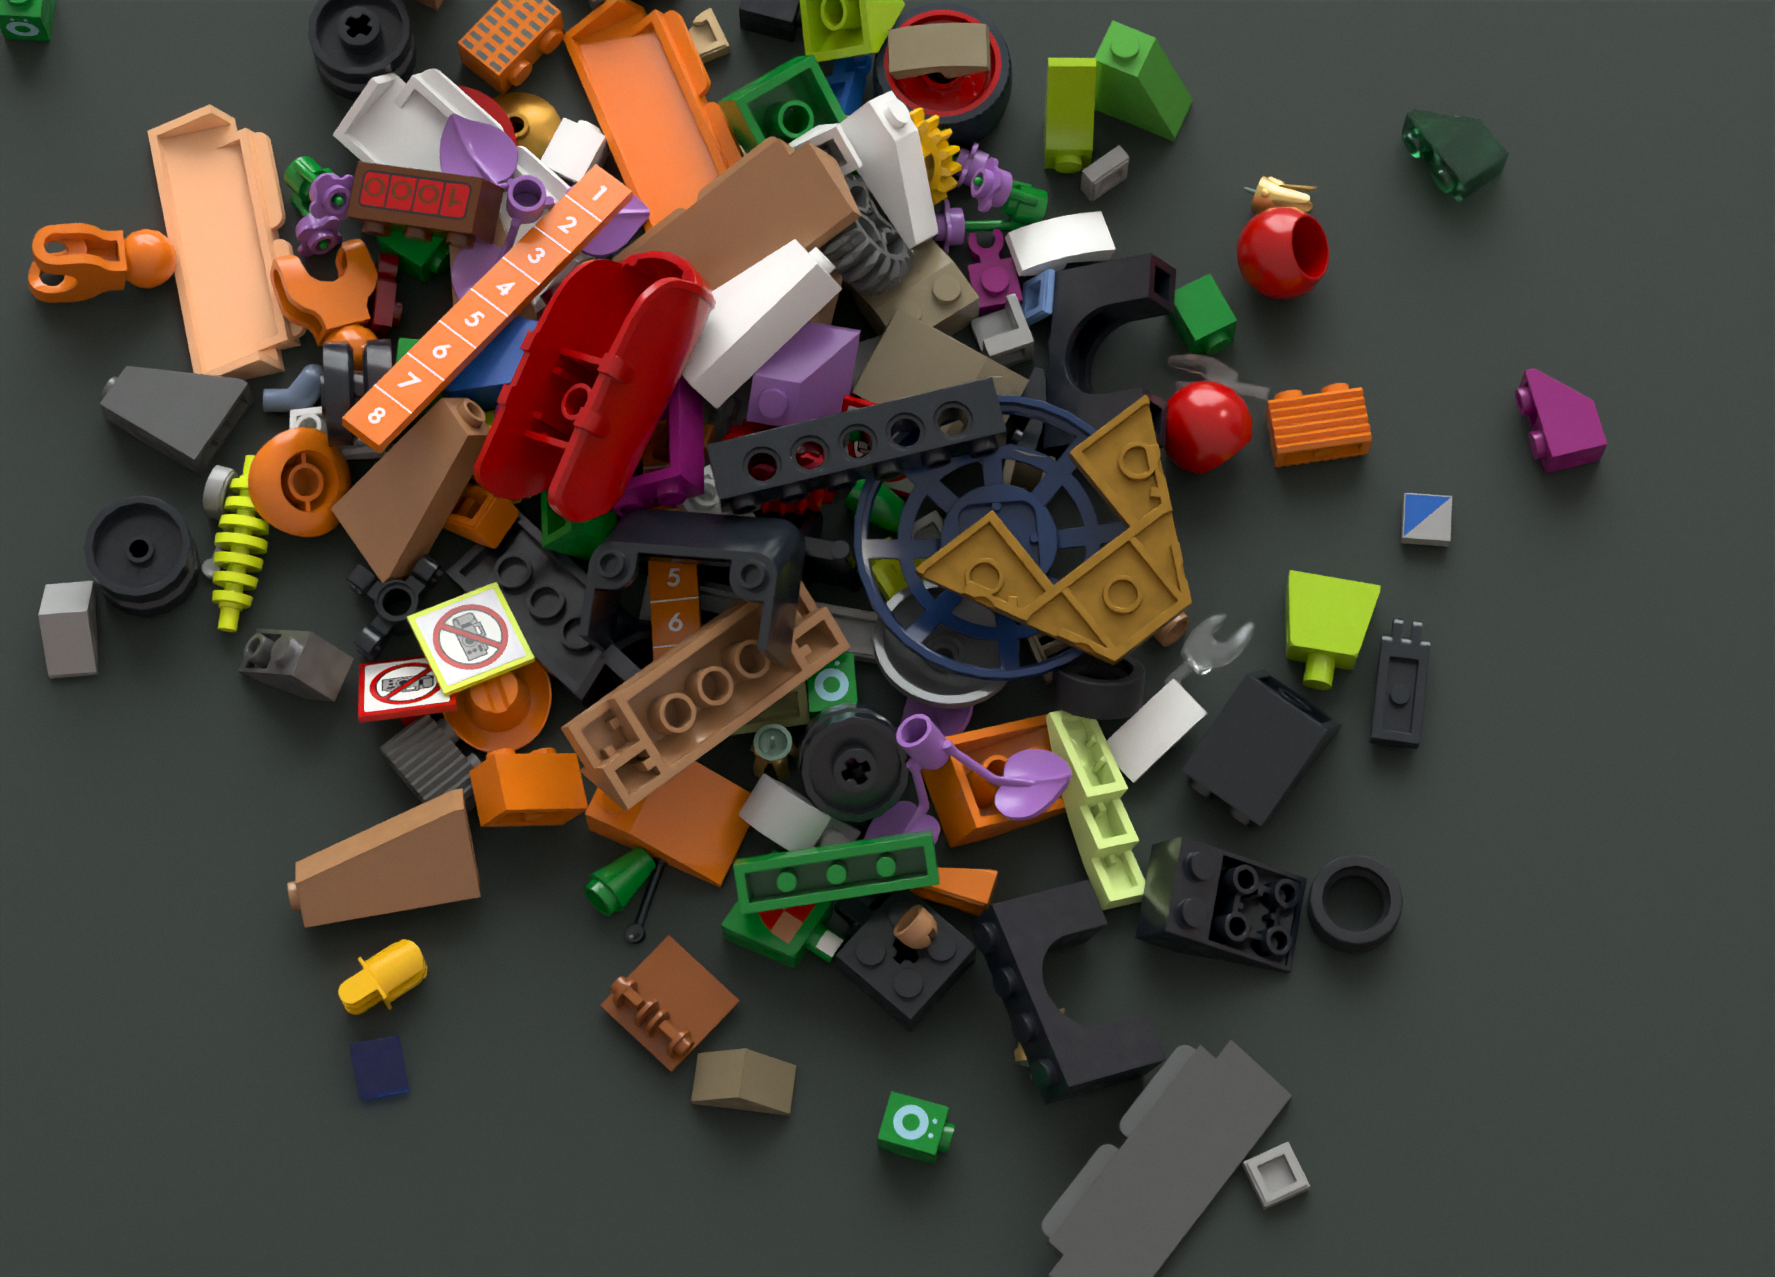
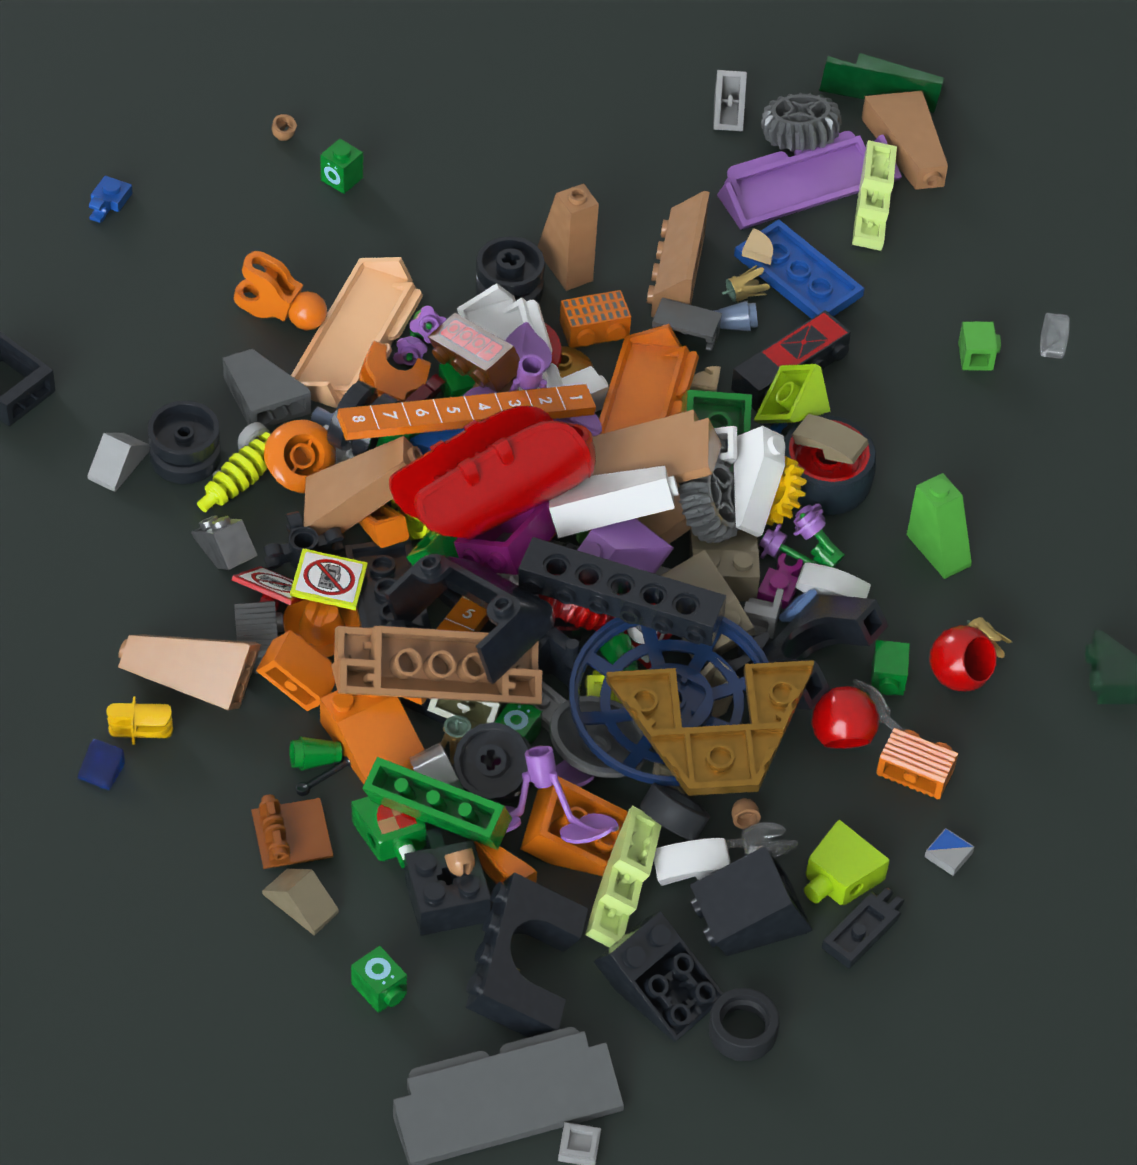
camera: 30 degrees right, 20 degrees down
(1069, 114) = (886, 515): lime slope -> none
(1105, 173) = (887, 566): light grey tile -> none
(1562, 422) = (1074, 847): magenta slope -> none

